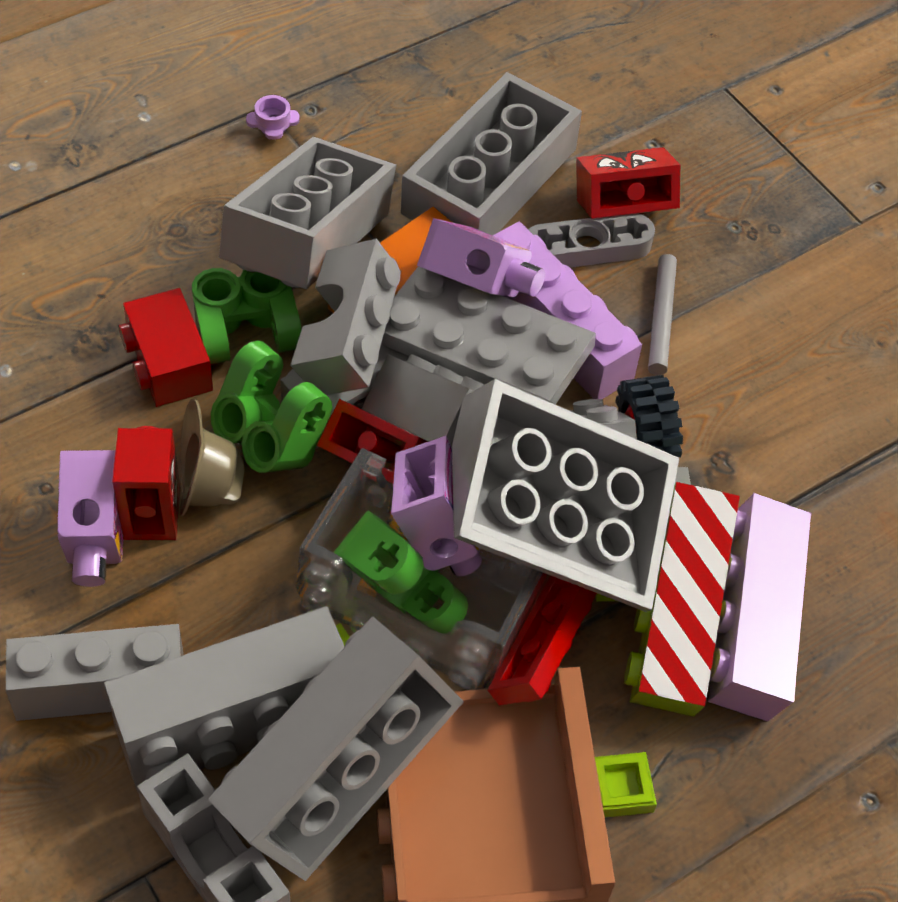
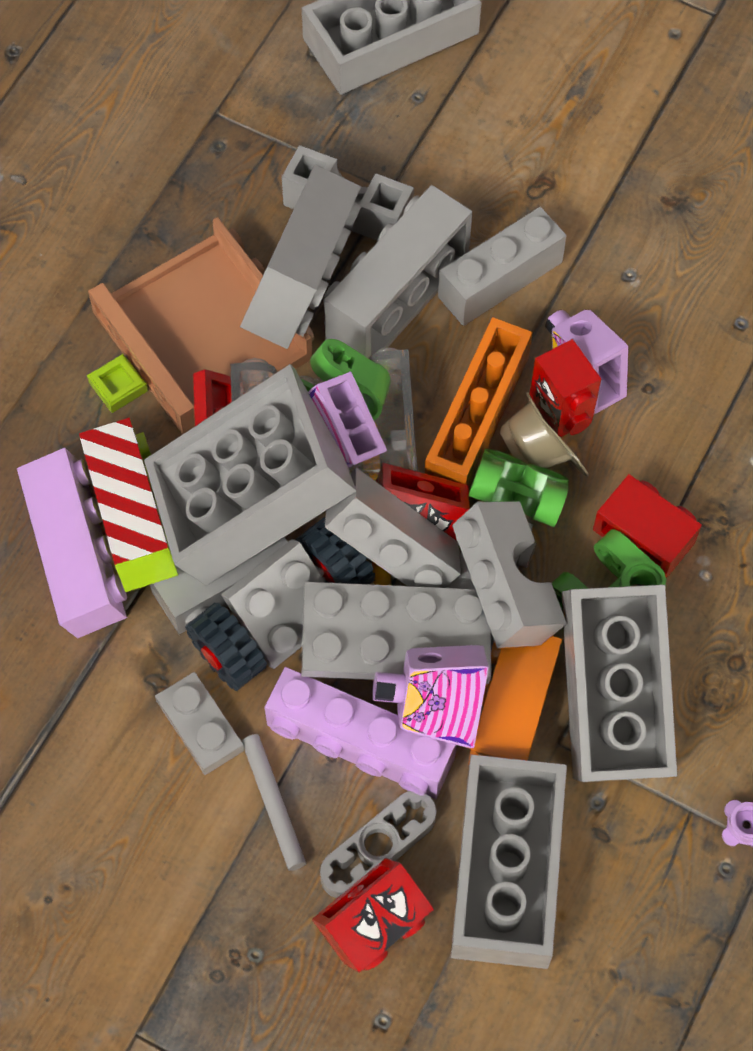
camera: 155 degrees right, 10 degrees up
(241, 523) = (479, 403): none -> orange brick
(701, 403) = (199, 723): none -> light grey plate

